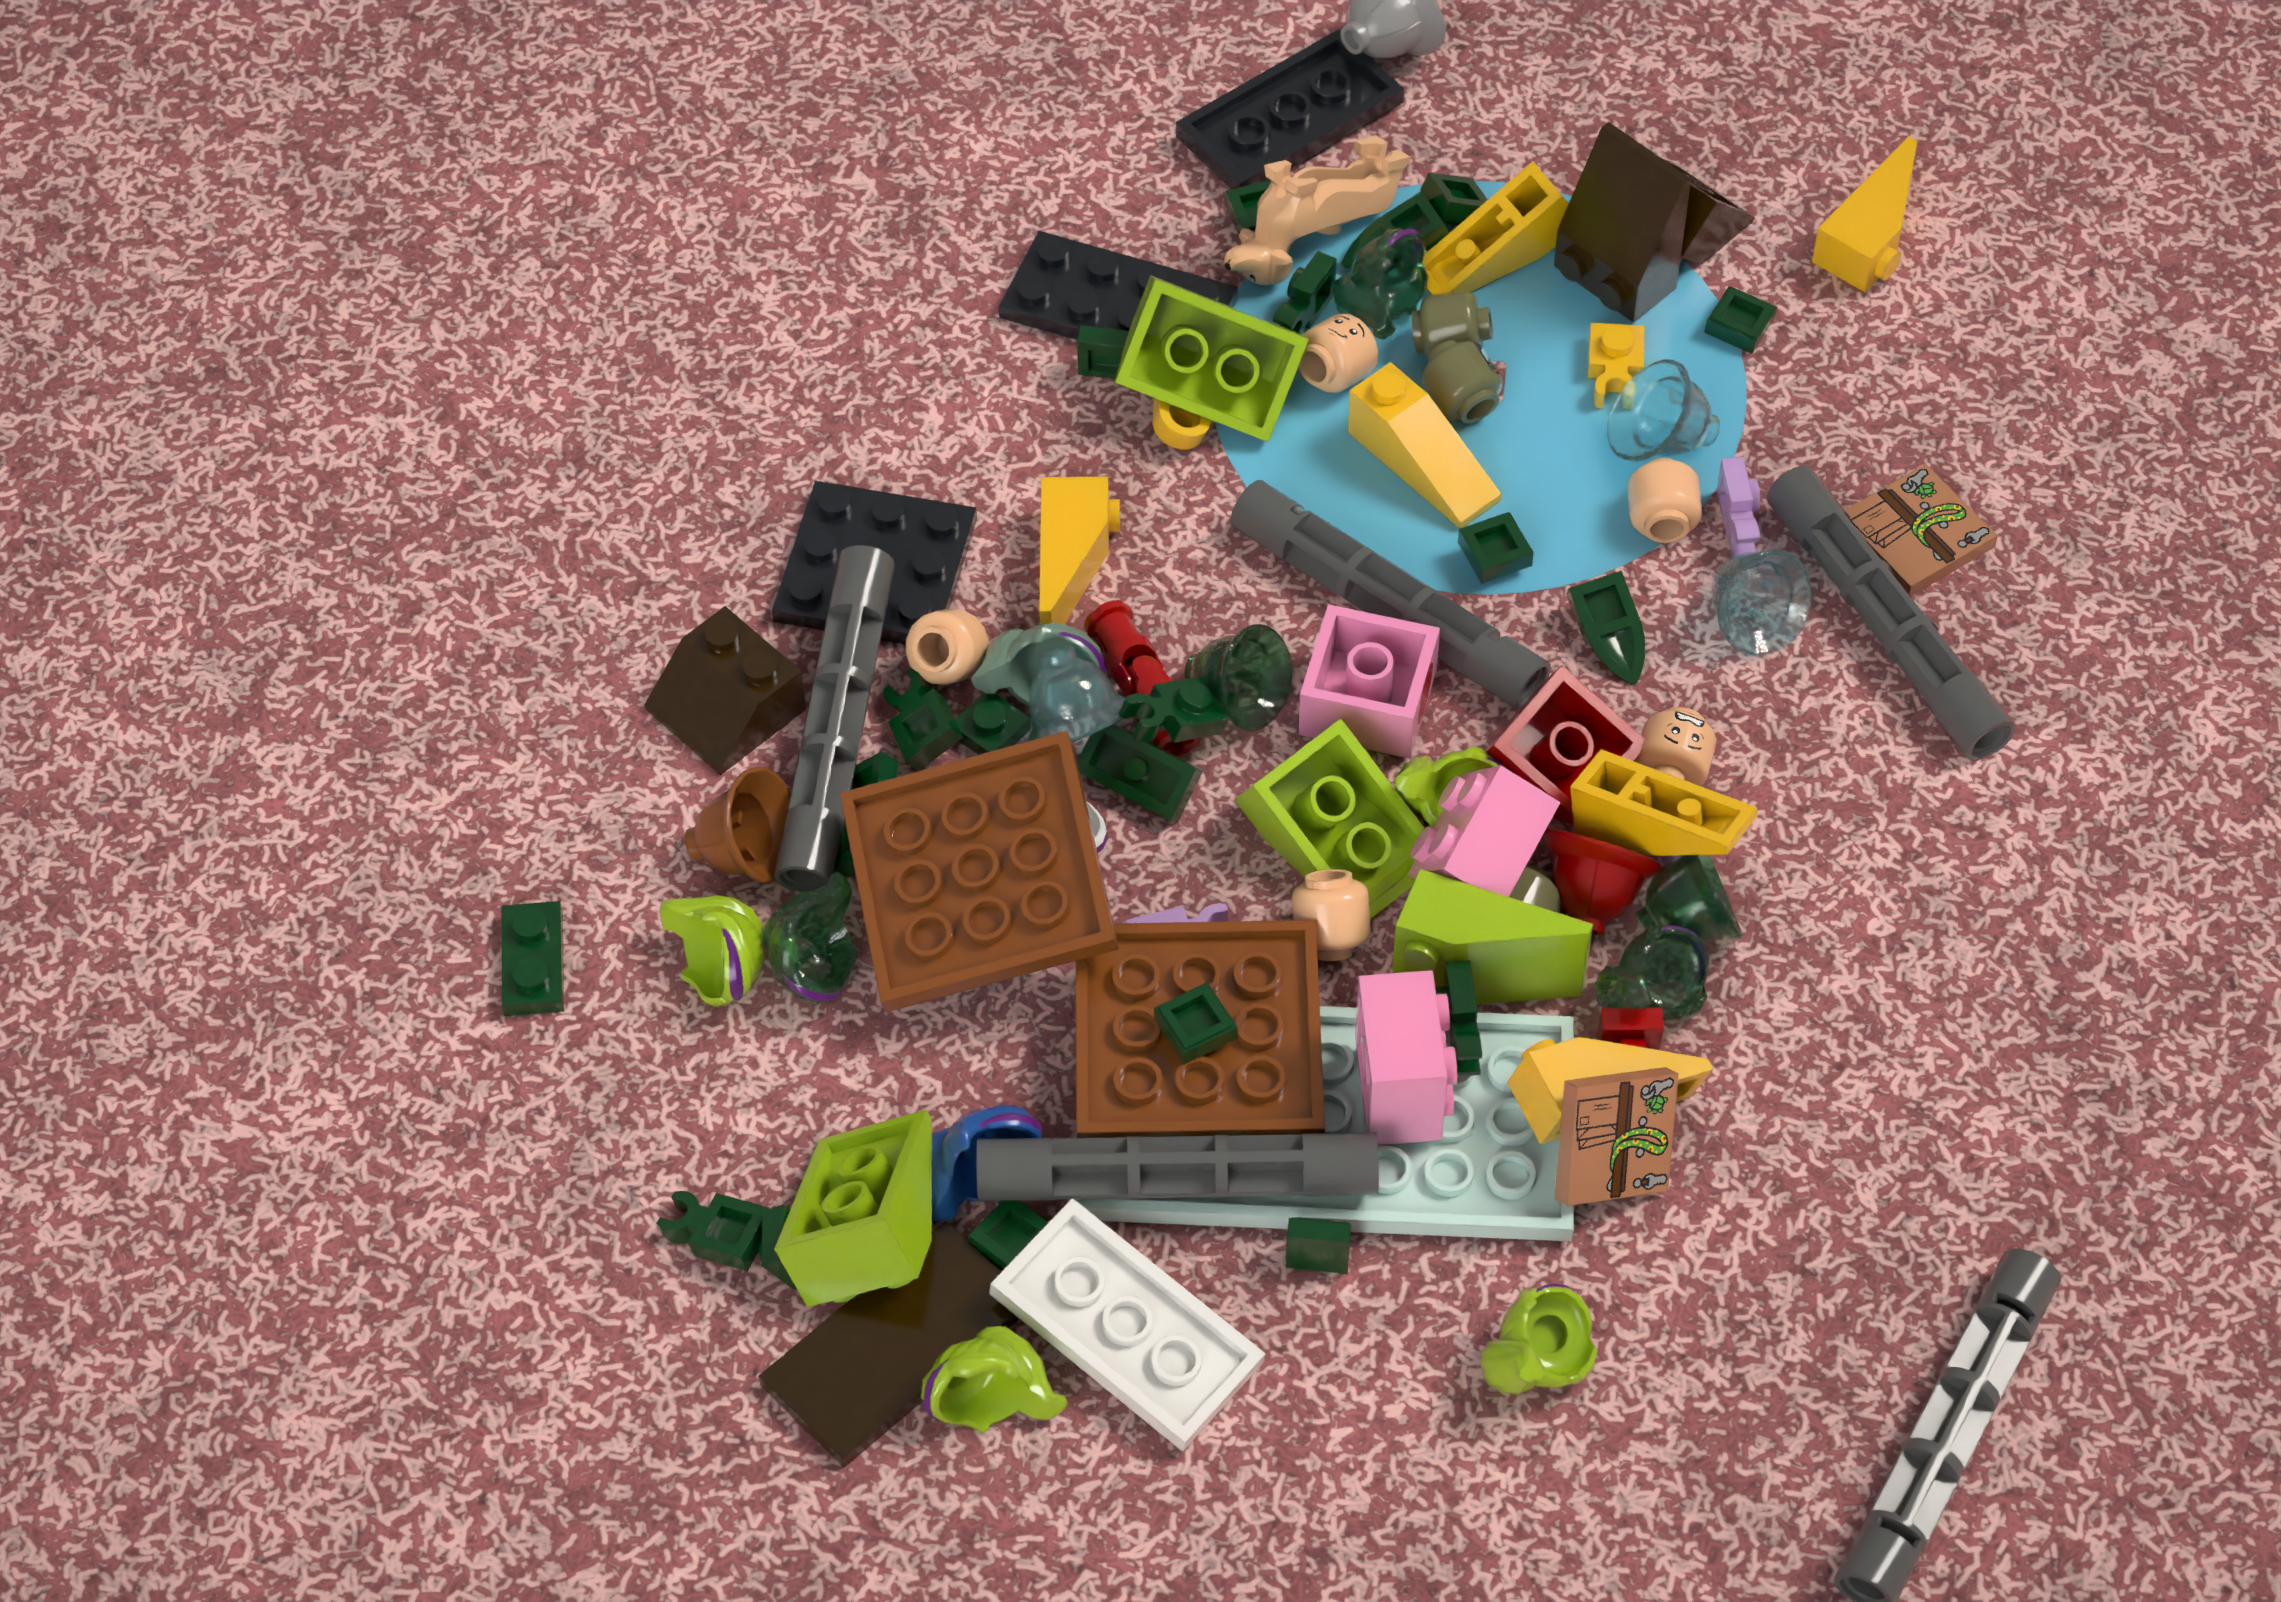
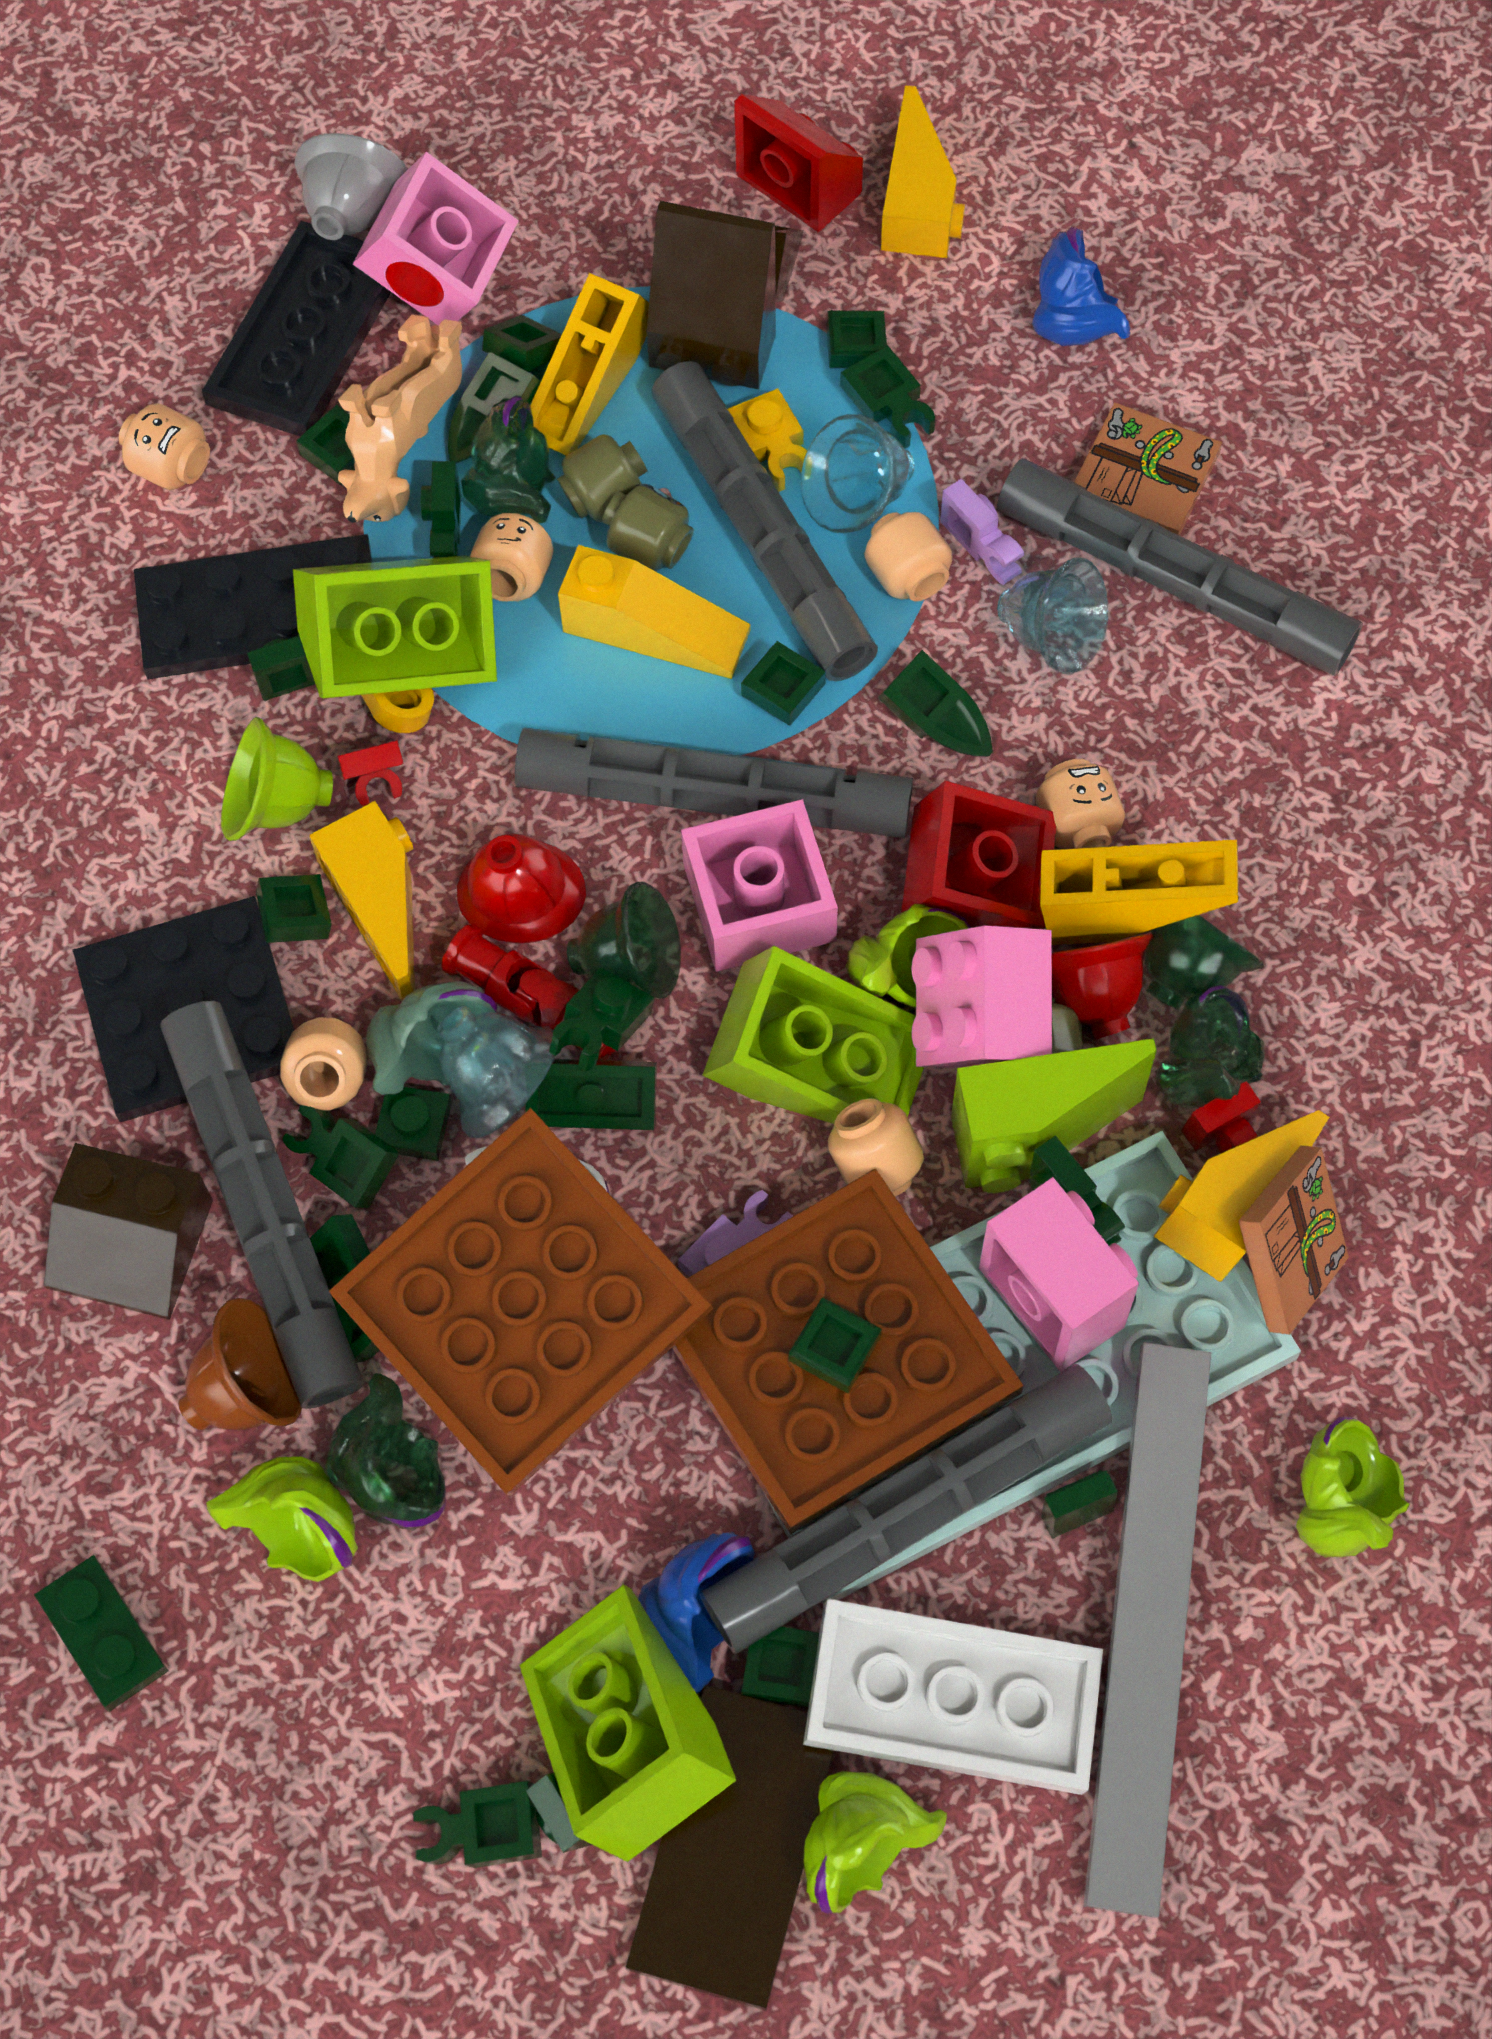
camera: 30 degrees left, 10 degrees up
(999, 529) = (293, 908): none -> dark green plate
(1042, 432) = (271, 783): none -> lime hat
(1120, 150) = (164, 446): none -> light nougat head
(1129, 453) = (370, 764): none -> red tile
(1185, 599) = (520, 889): none -> red hat
(1310, 1358) = (1148, 1632): none -> light grey tile
(1431, 88) = (436, 241): none -> bright pink brick
(1562, 420) = (764, 522): none -> dark grey piece
(1735, 367) = (888, 390): none -> dark green plate
(1778, 155) = (794, 160): none -> red slope
(1948, 363) = (1073, 296): none -> blue hair

